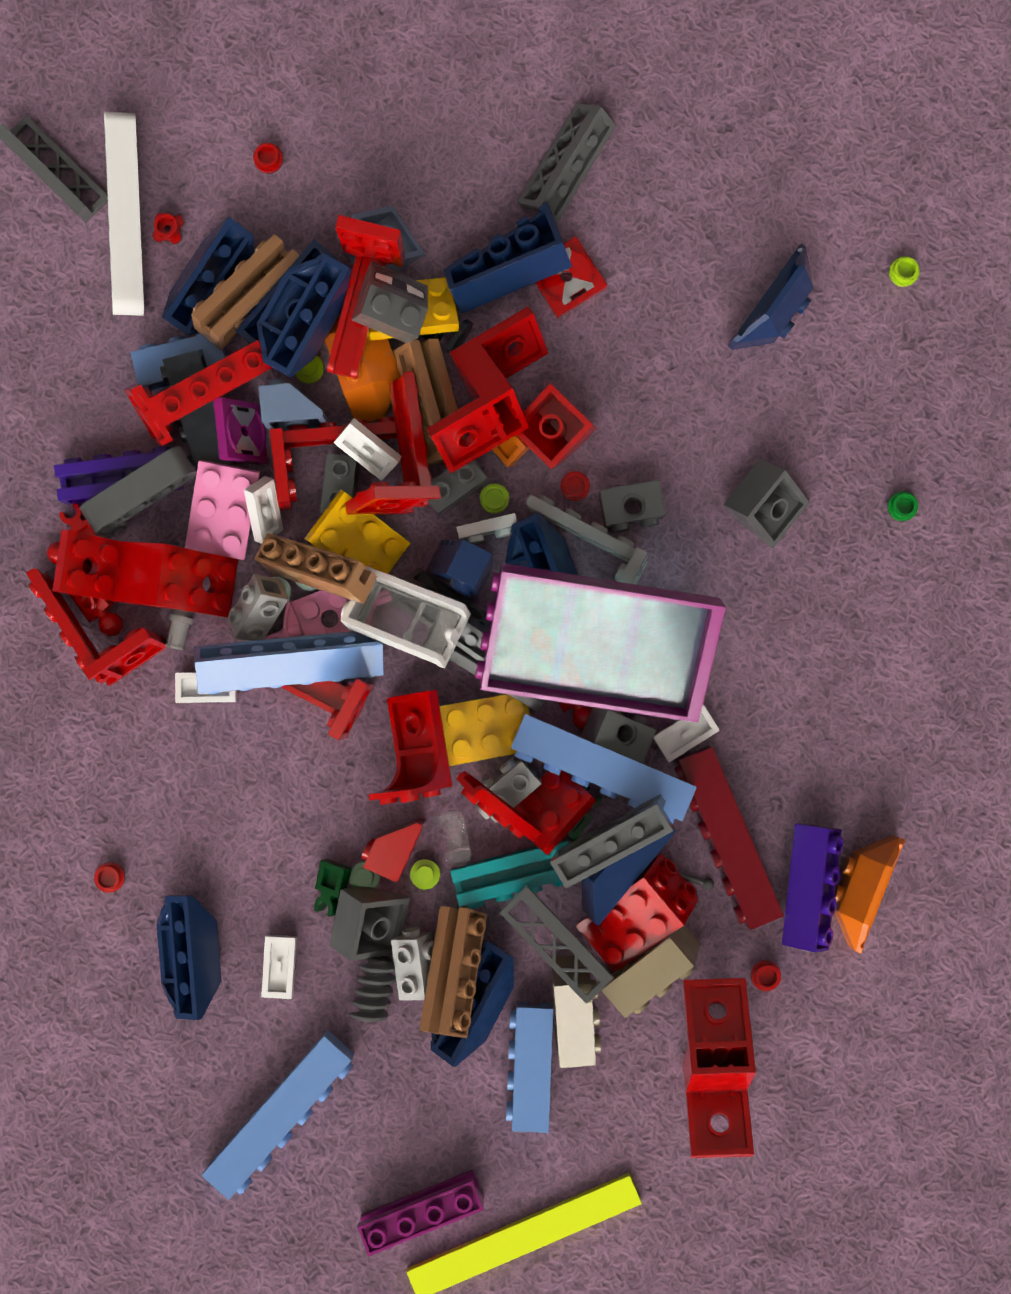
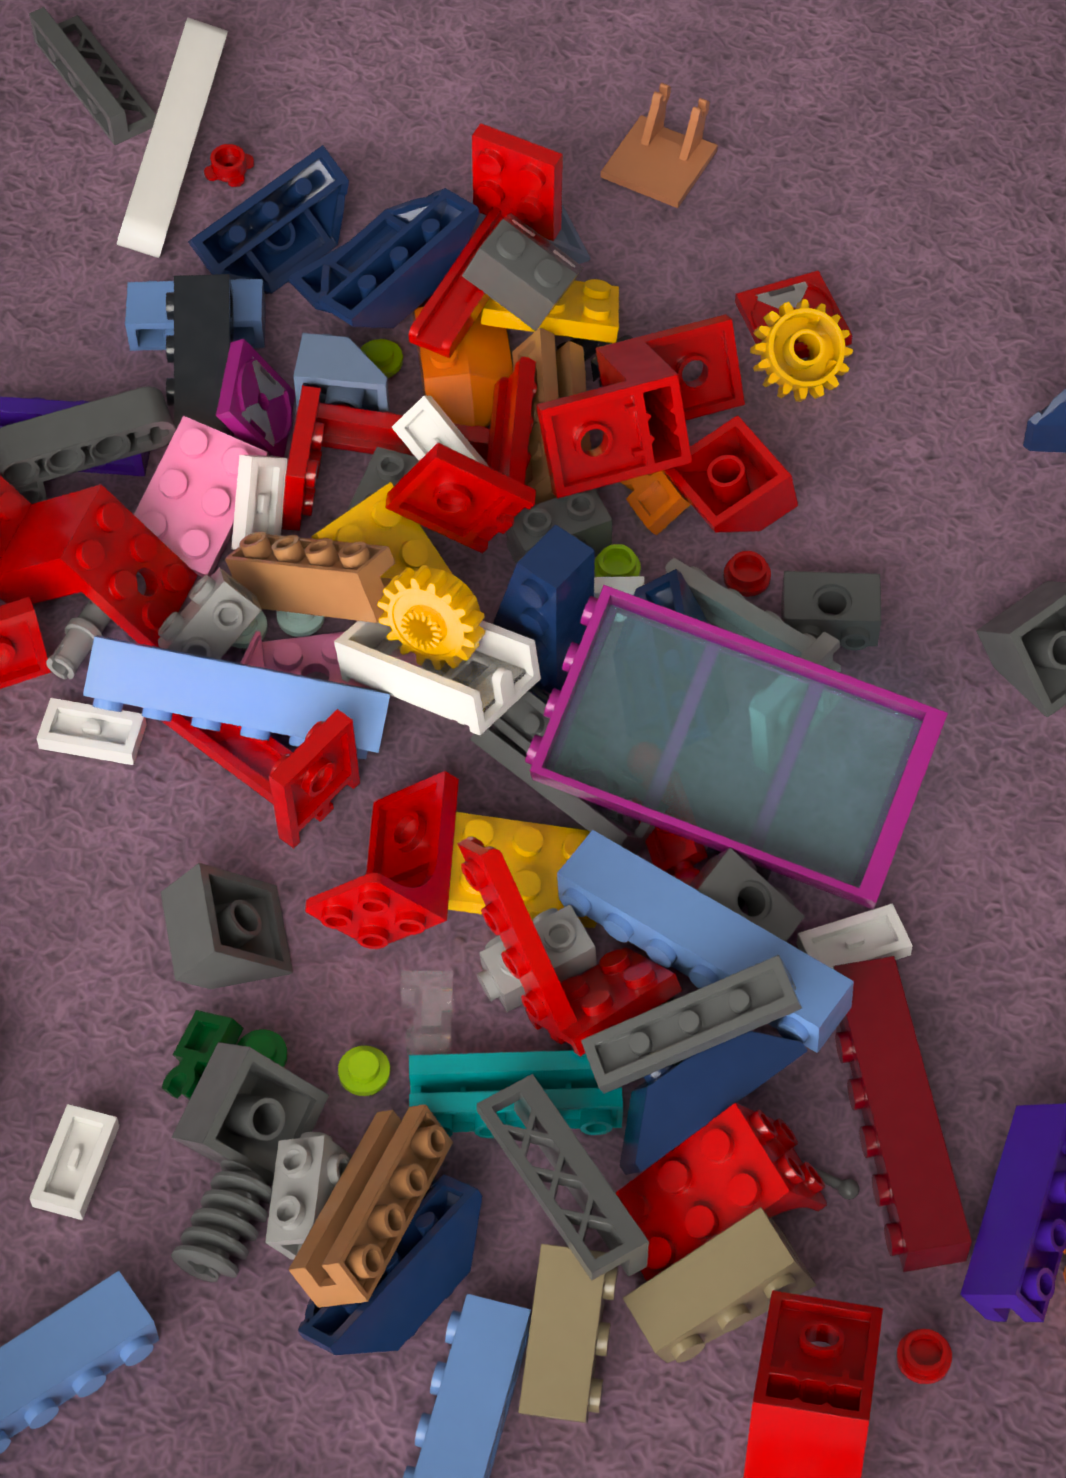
camera: 10 degrees right, 30 degrees down
(195, 391) = (139, 332): red bracket -> none
(241, 292) = (280, 247): medium nougat brick -> none
(268, 158) = (396, 112): red plate -> none
(323, 805) = (224, 928): none -> dark grey slope
(392, 849) = (326, 999): red slope -> none
(398, 598) = (432, 616): none -> yellow gear
(453, 160) = (659, 159): none -> nougat plate
(509, 262) = (709, 275): dark blue wedge -> none
(572, 162) = (826, 187): dark grey fence -> none
(591, 318) = (823, 341): none -> yellow gear

